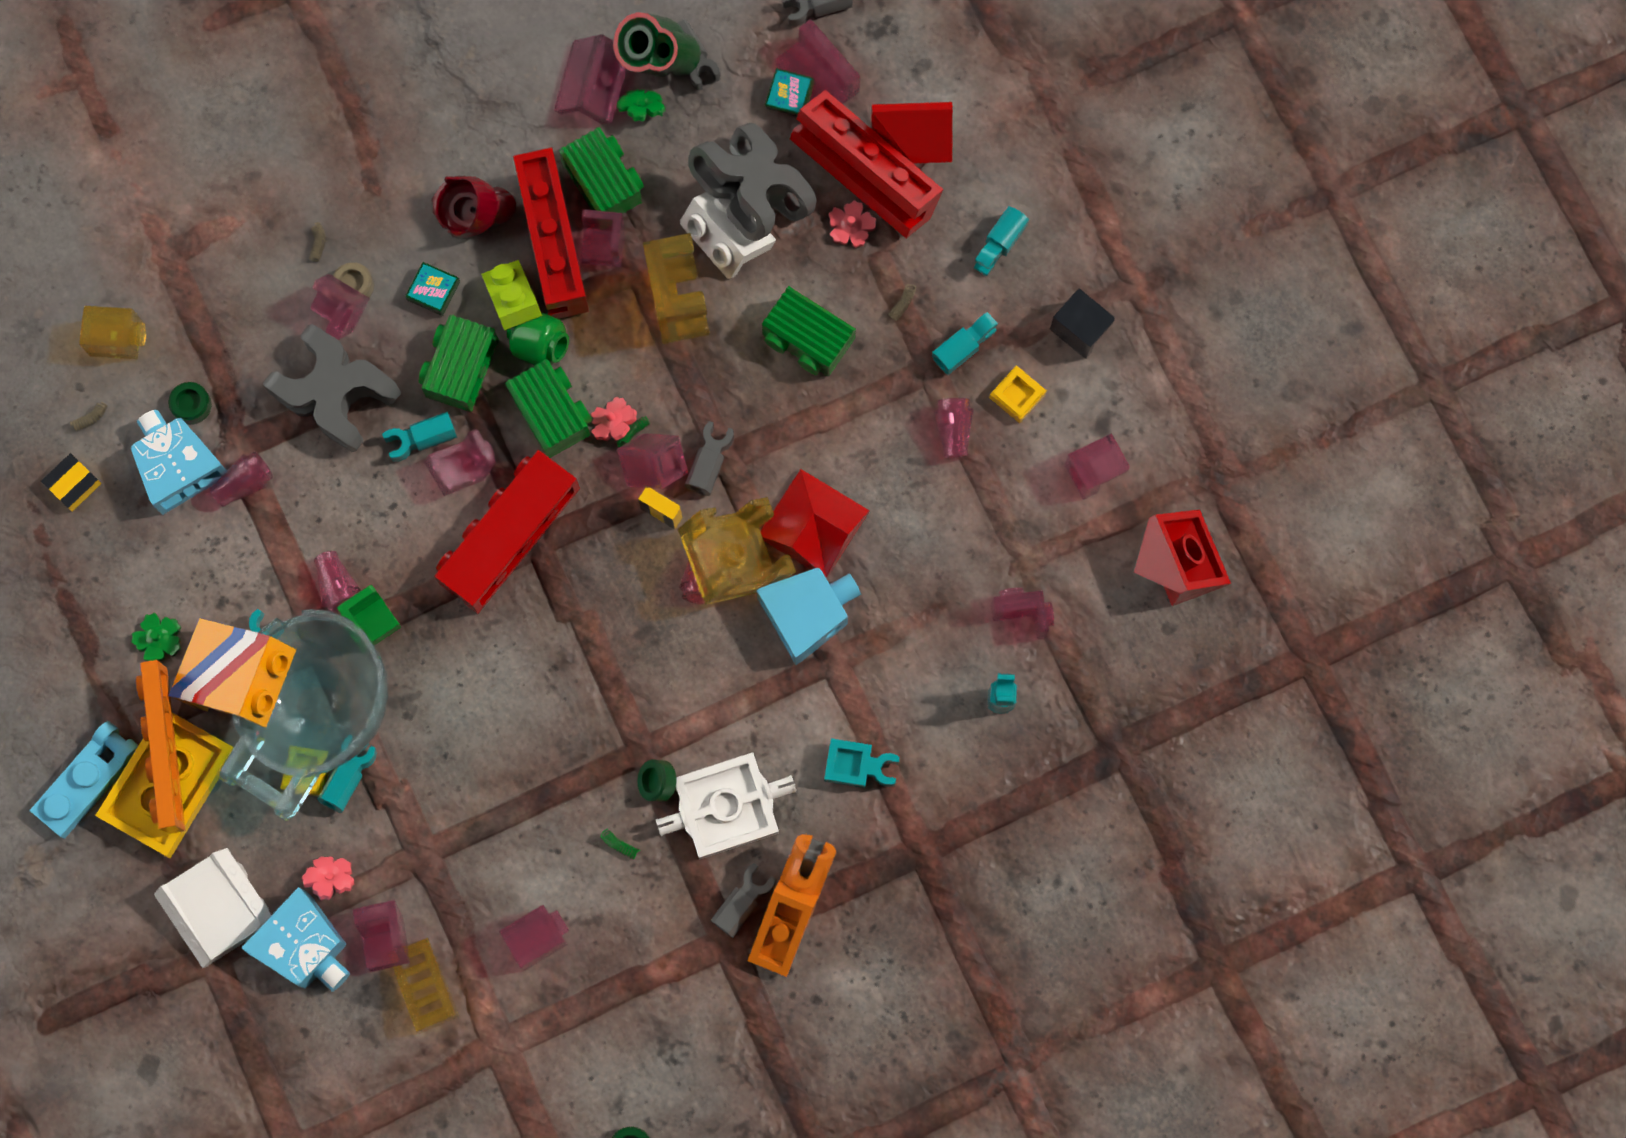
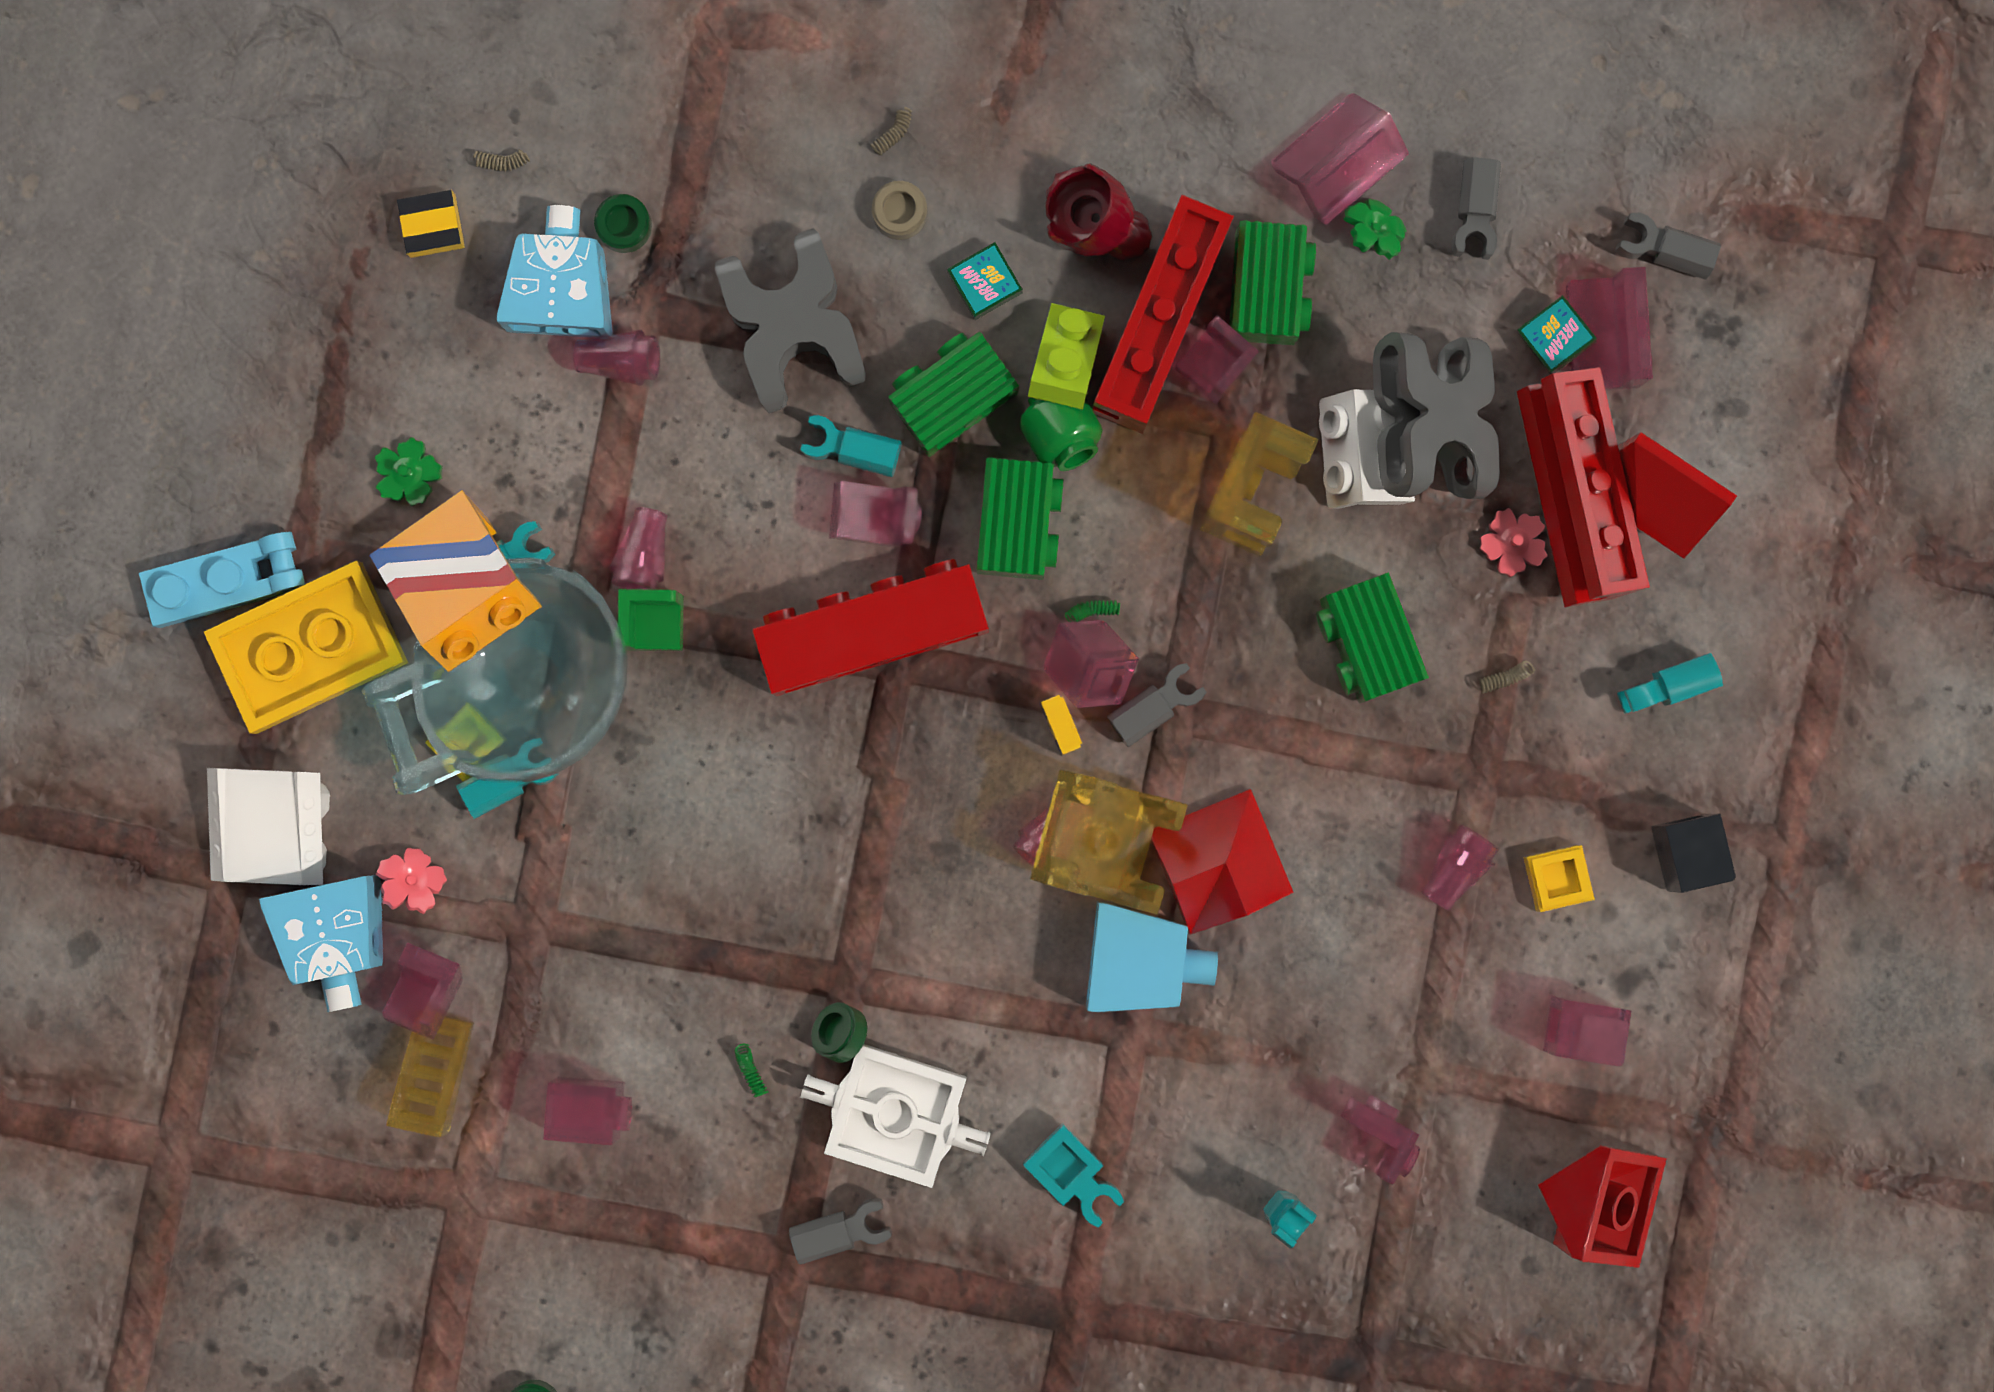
camera: 35 degrees right, 10 degrees up
(111, 332) = (589, 79): clear yellow brick -> none
(163, 764) = (310, 632): orange plate -> none
(338, 304) = (865, 226): clear pink panel -> none
(613, 420) = (1080, 583): coral plant -> none
(655, 46) = (1440, 172): dark green piece -> none
(792, 904) = (889, 1282): orange plate -> none
(964, 344) = (1539, 778): teal bar -> none

